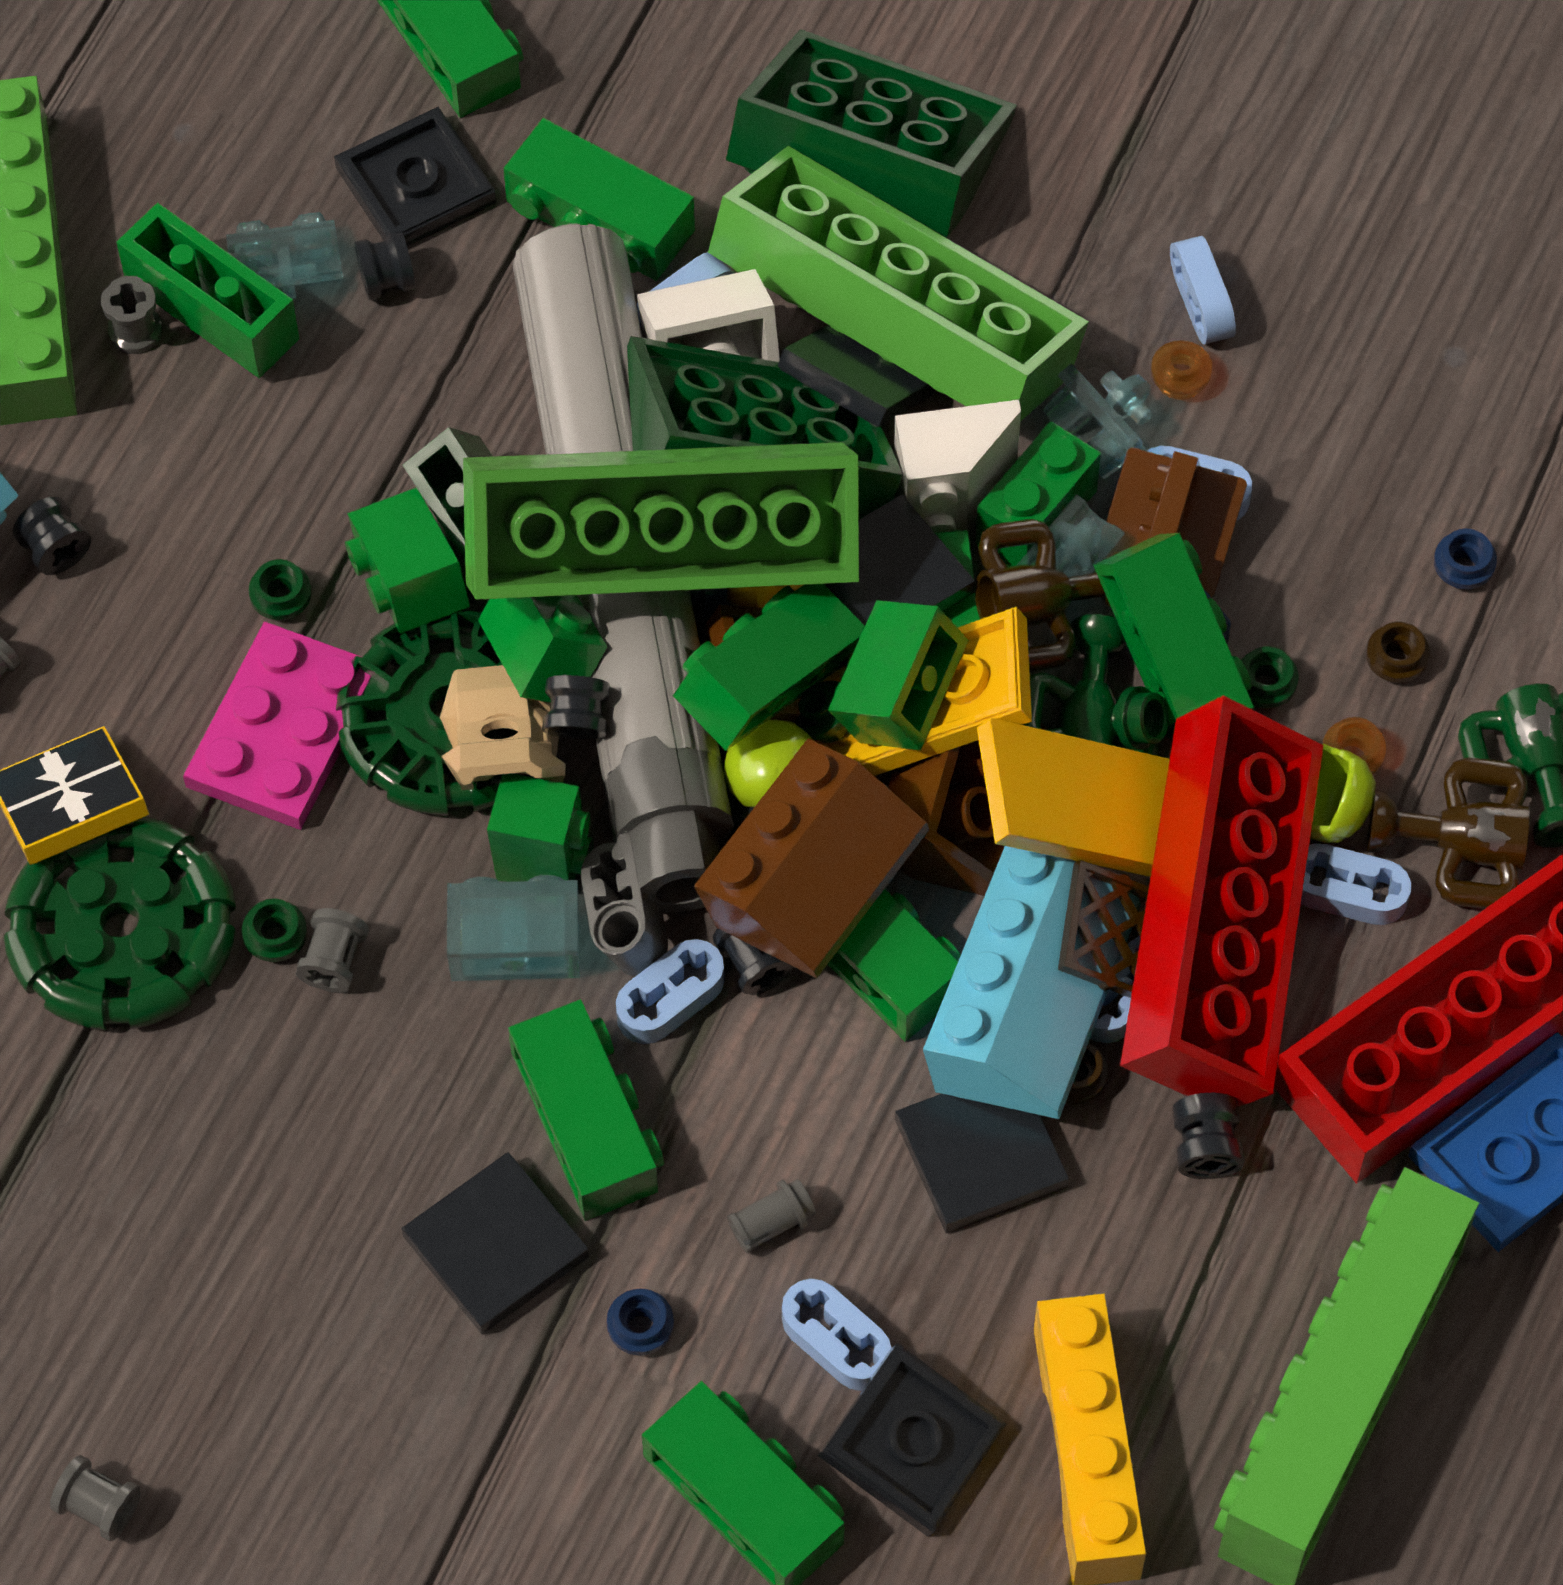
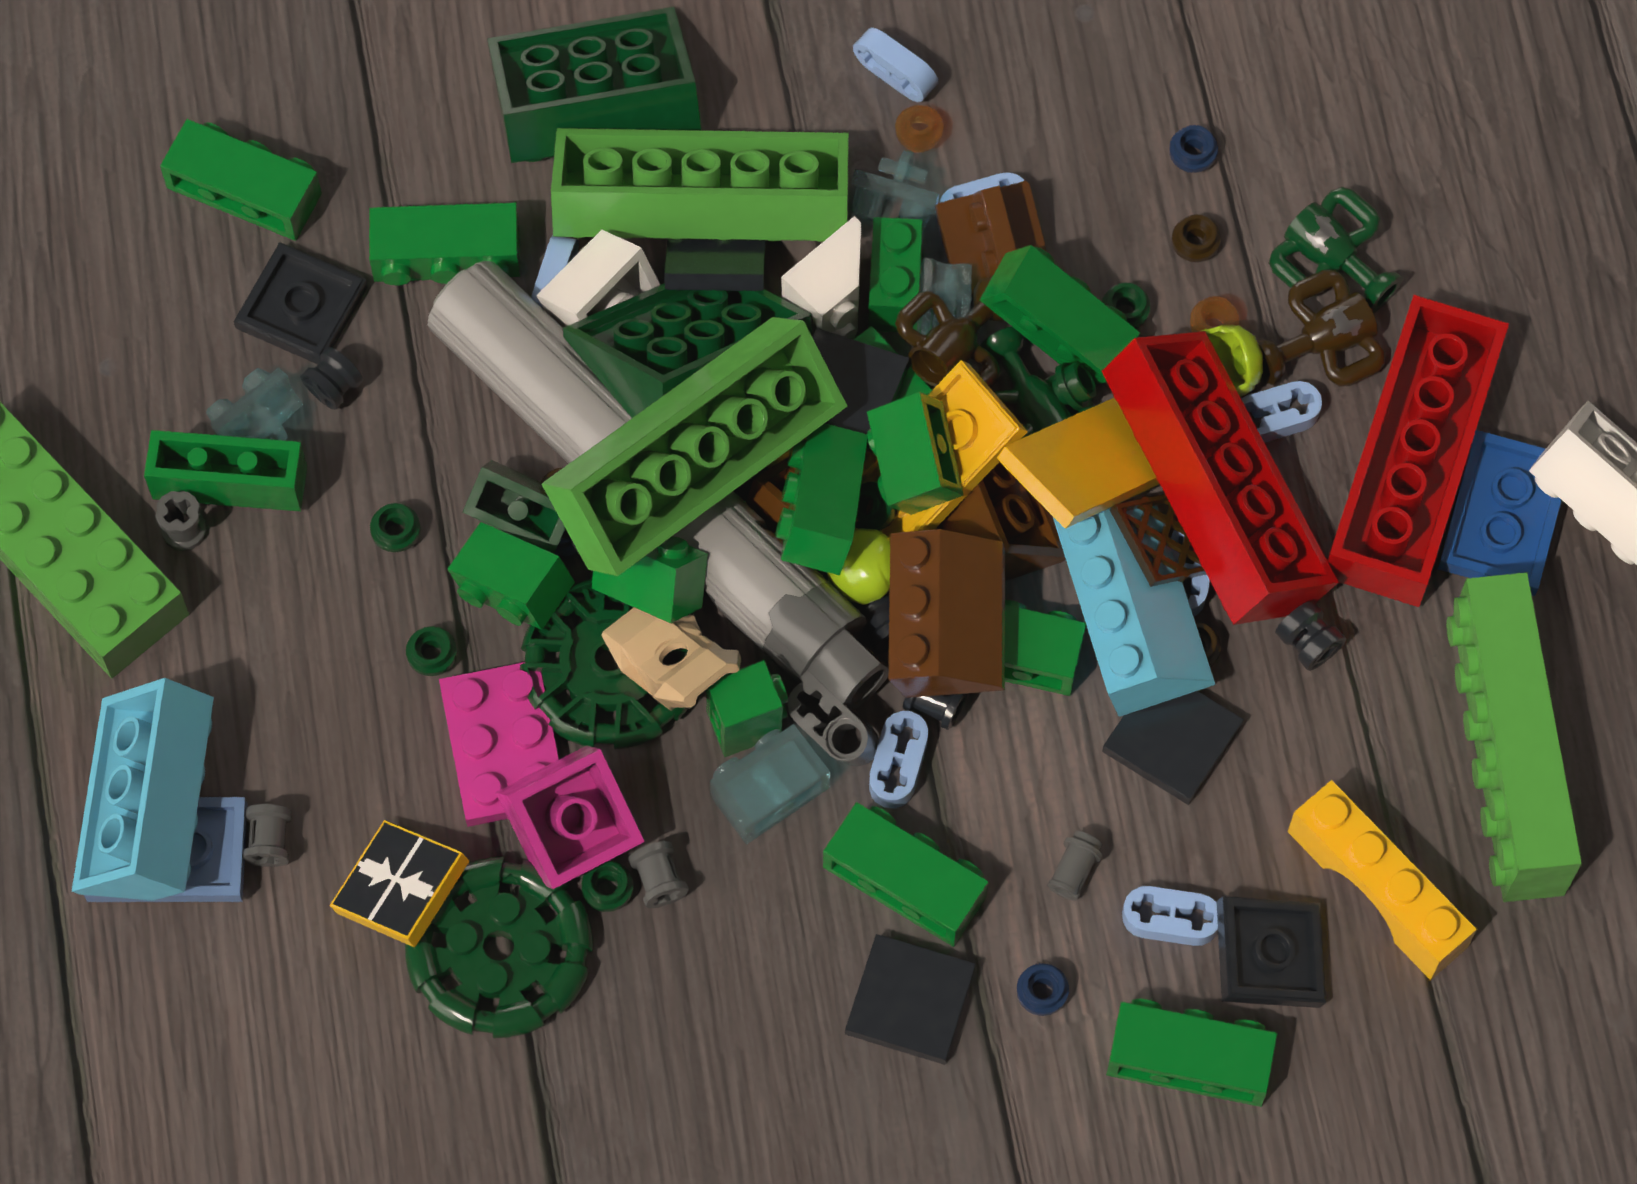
camera: 35 degrees left, 5 degrees up
(51, 535) = (246, 710): black wheel -> none
(277, 831) = (570, 816): none -> dark pink brick
(337, 434) = (390, 515): none -> dark green plate
(576, 707) = (716, 607): black wheel -> none

